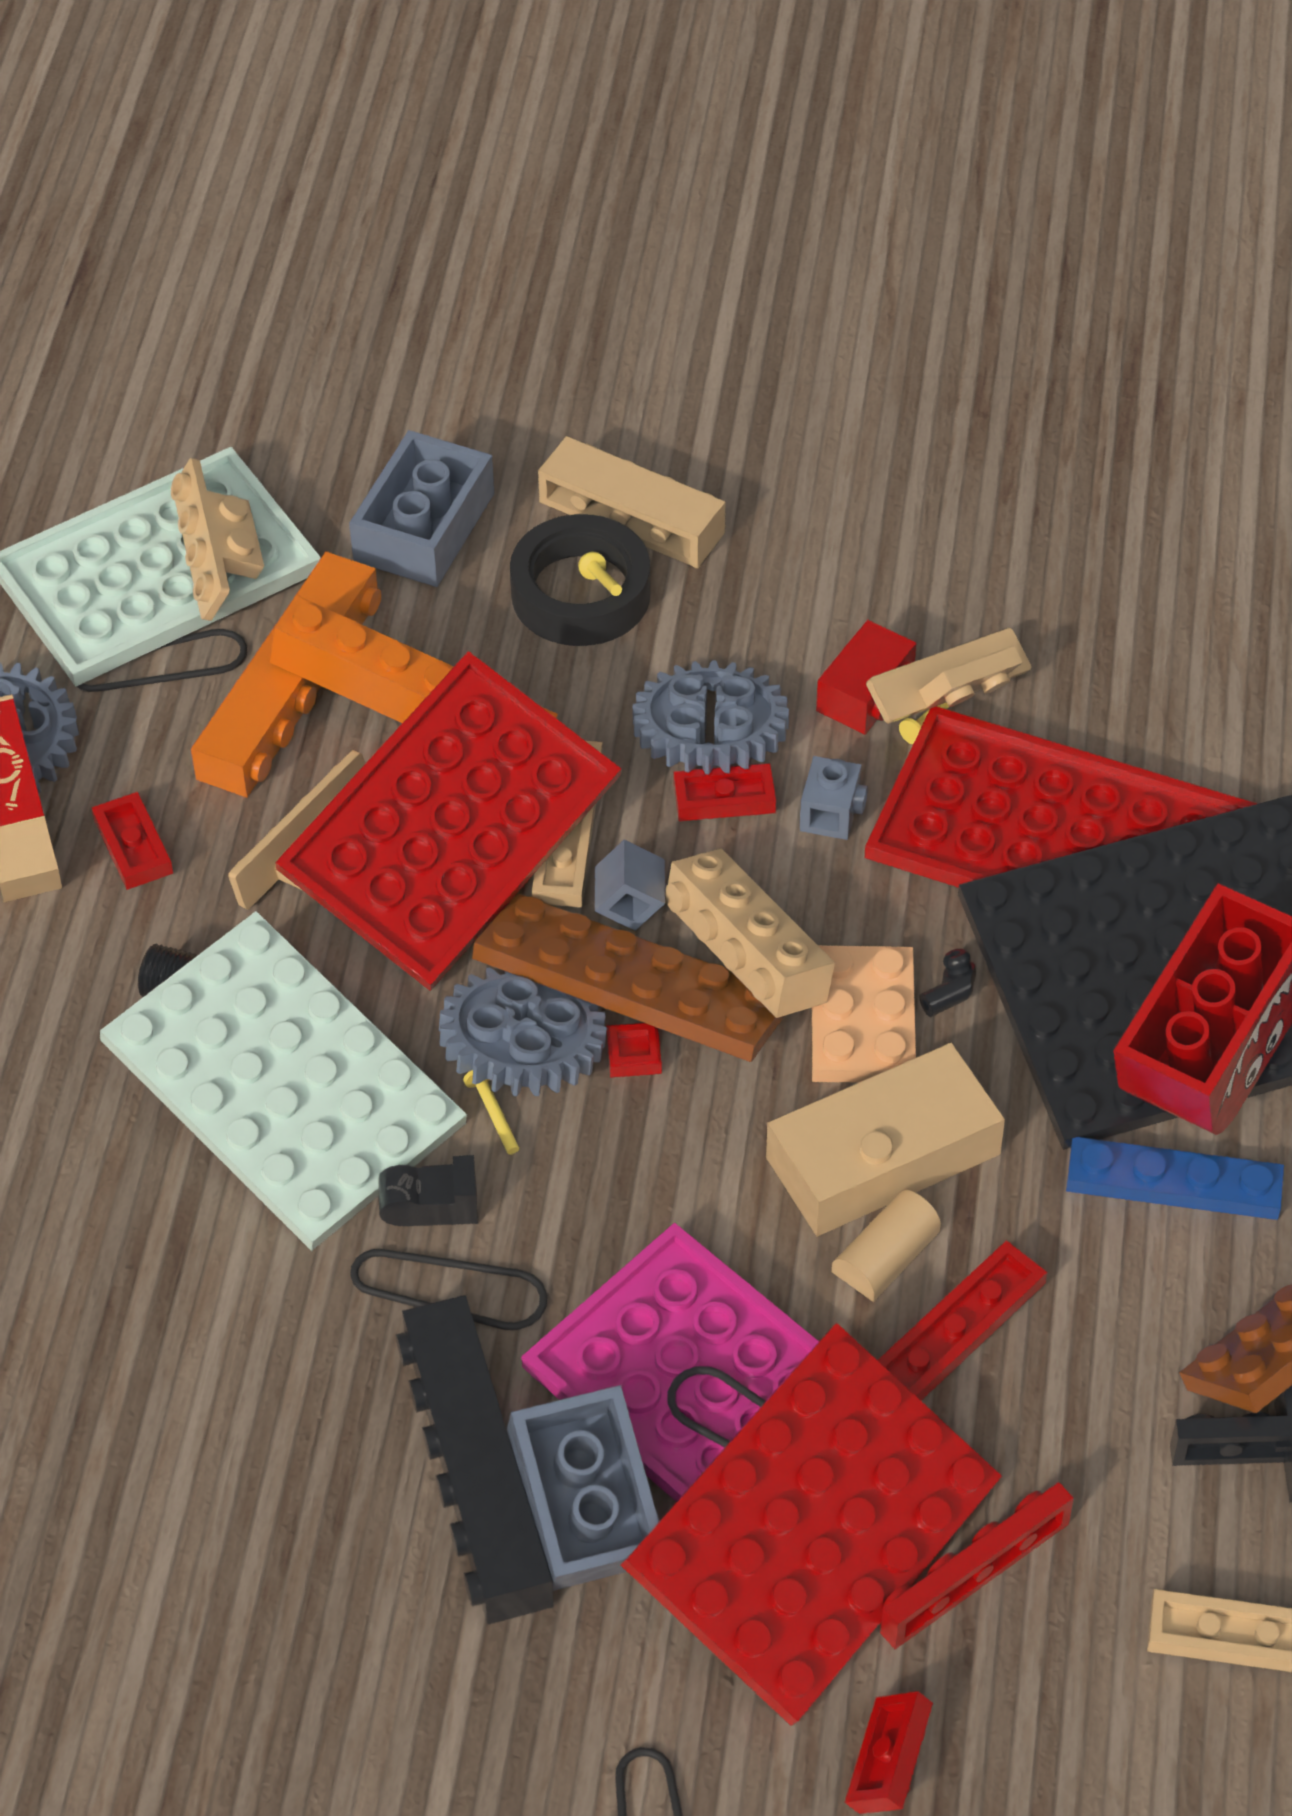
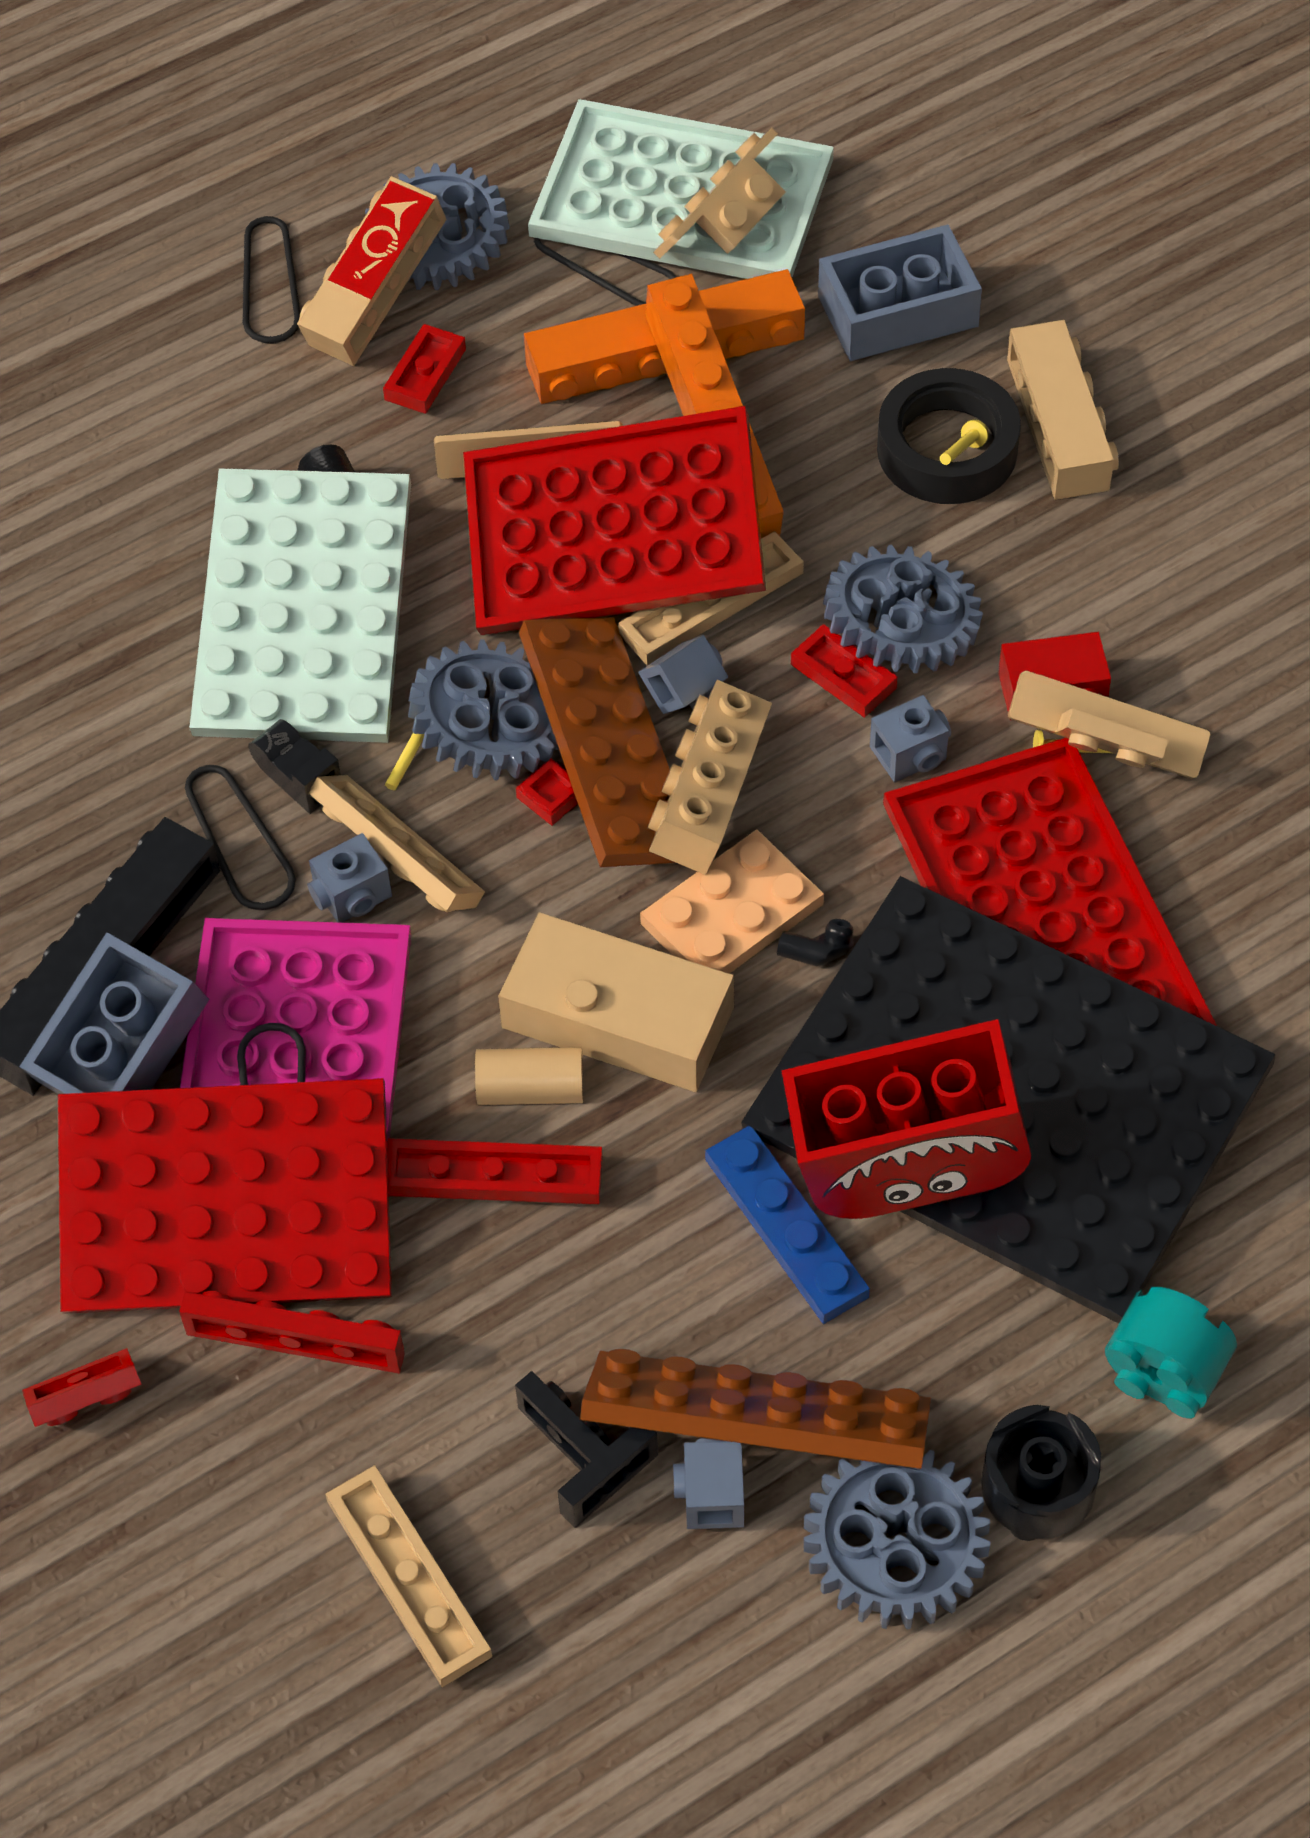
camera: 50 degrees right, 5 degrees up
(586, 1233) = (349, 879): none -> sand blue brick
(605, 1179) = (396, 842): none -> tan plate

